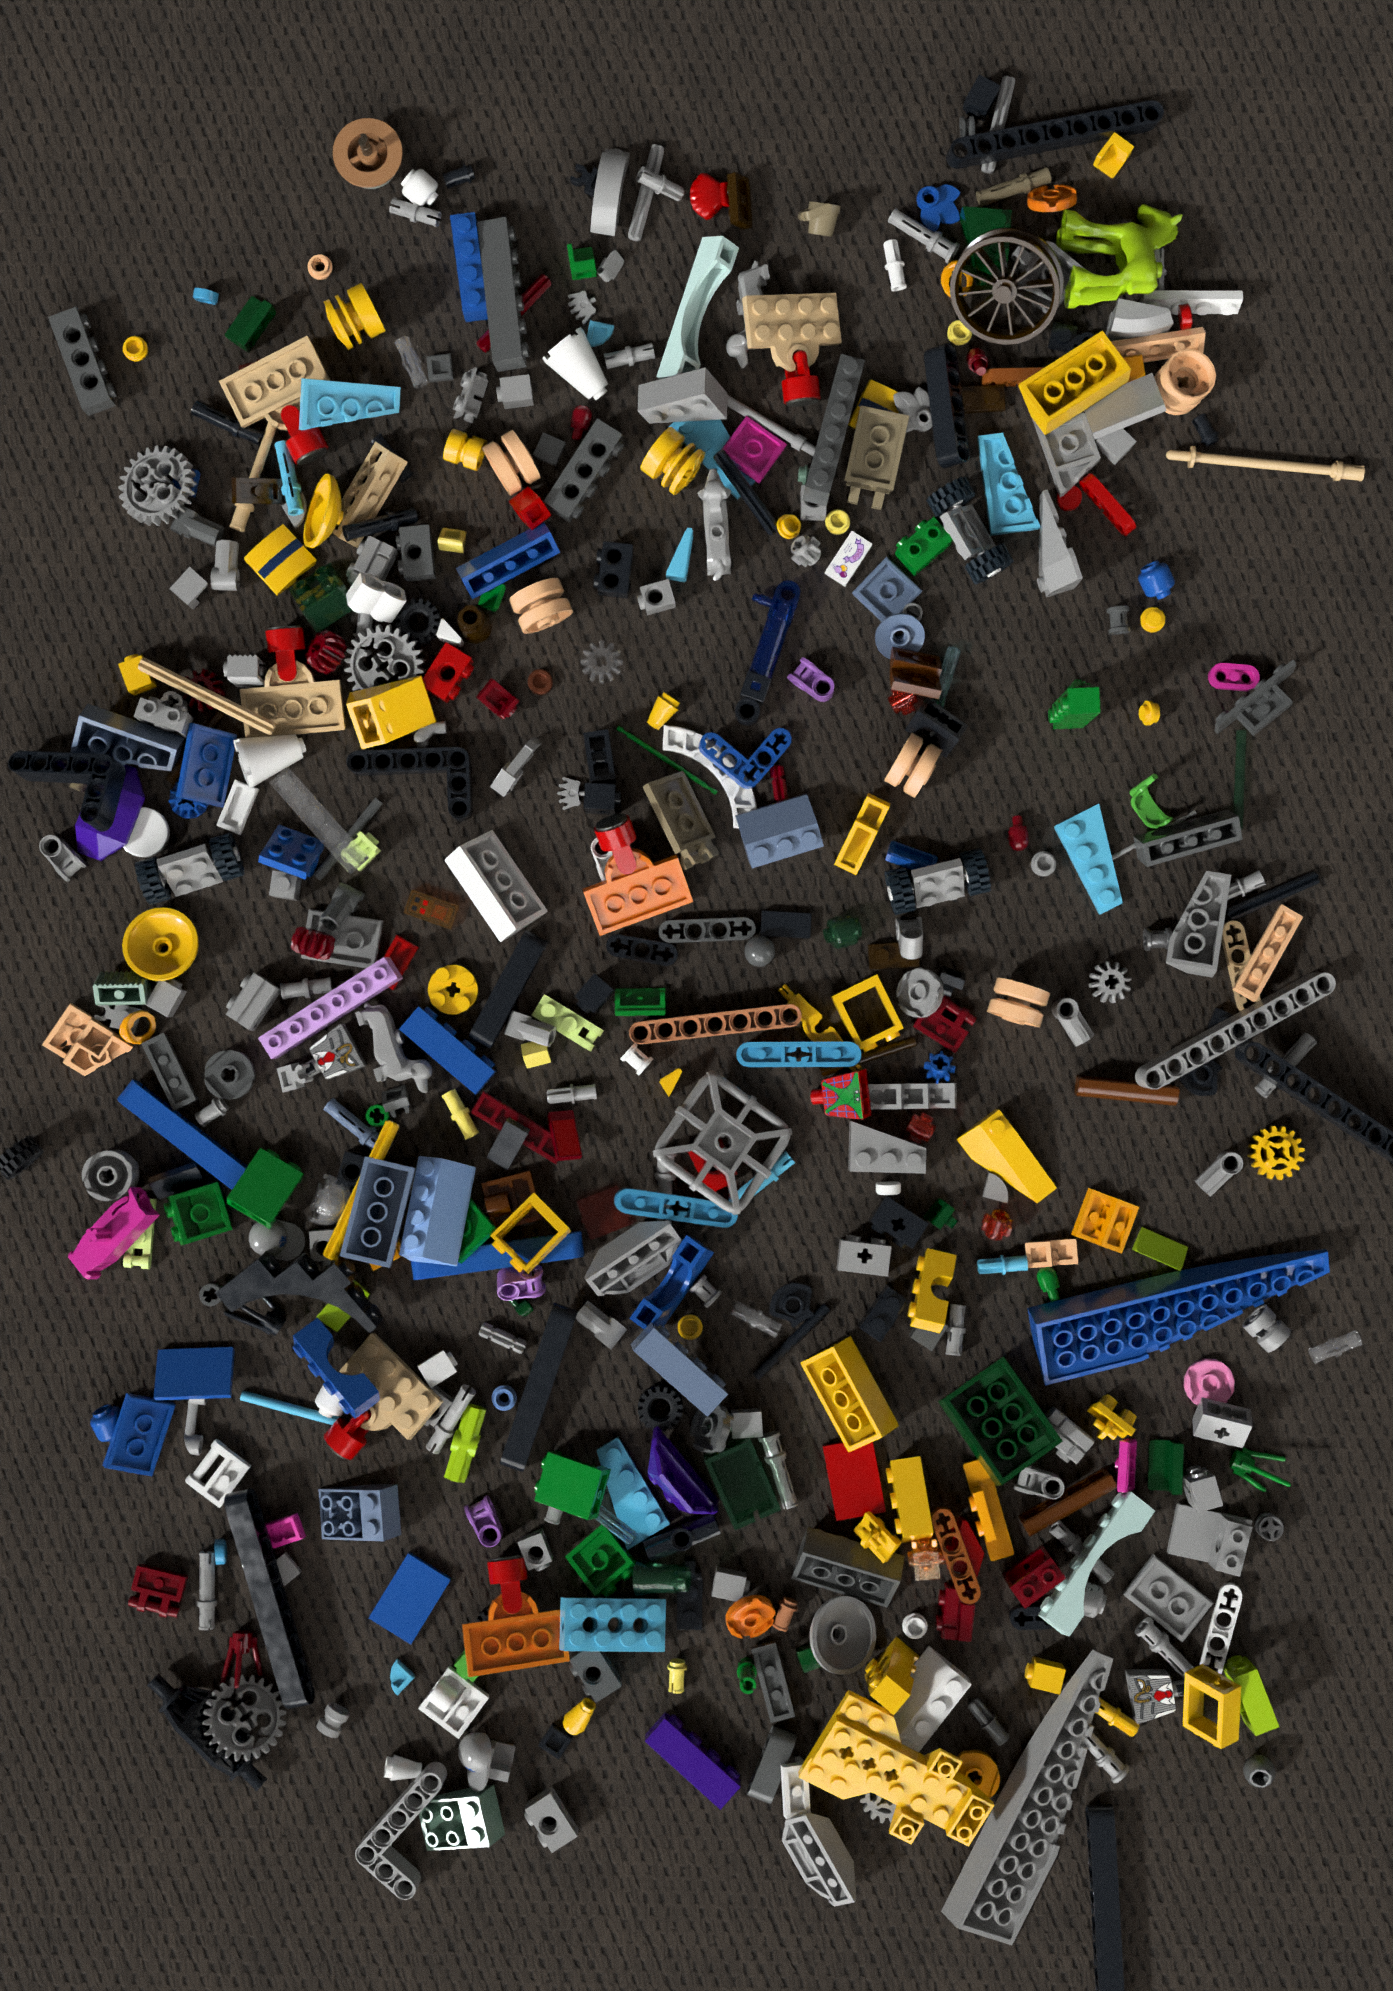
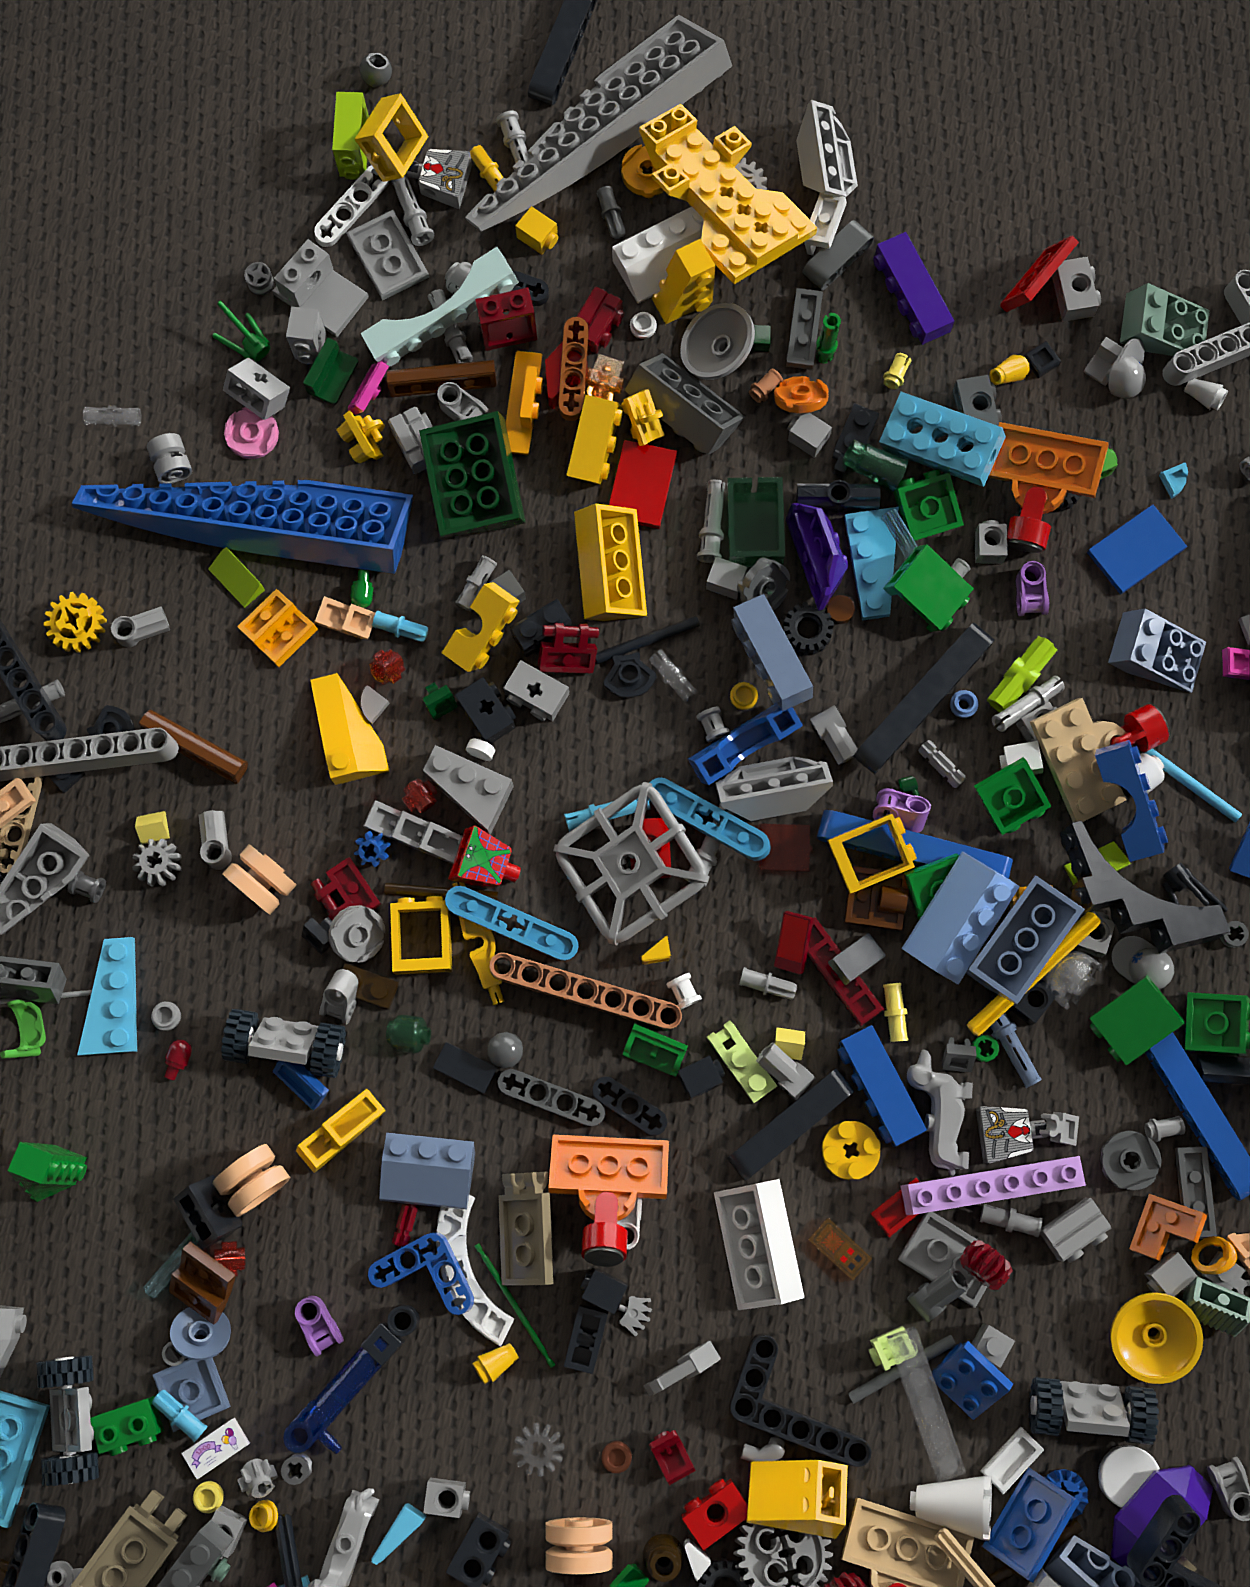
camera: 155 degrees left, 10 degrees down
(190, 1036) = (1160, 1220): none -> orange plate
(433, 1331) = (1012, 796): none -> green plate
(454, 1702) = (1130, 433): white plate -> none
(588, 1818) = (1038, 274): none -> red tile
(639, 1437) = (841, 609): none -> reddish brown tile
(774, 564) = (287, 1468): none -> flat silver bush
(848, 1297) = (568, 657): none -> dark red plate
(886, 570) = (179, 1415): none -> medium azure axle
(1128, 1009) = (152, 826): none -> light yellow slope

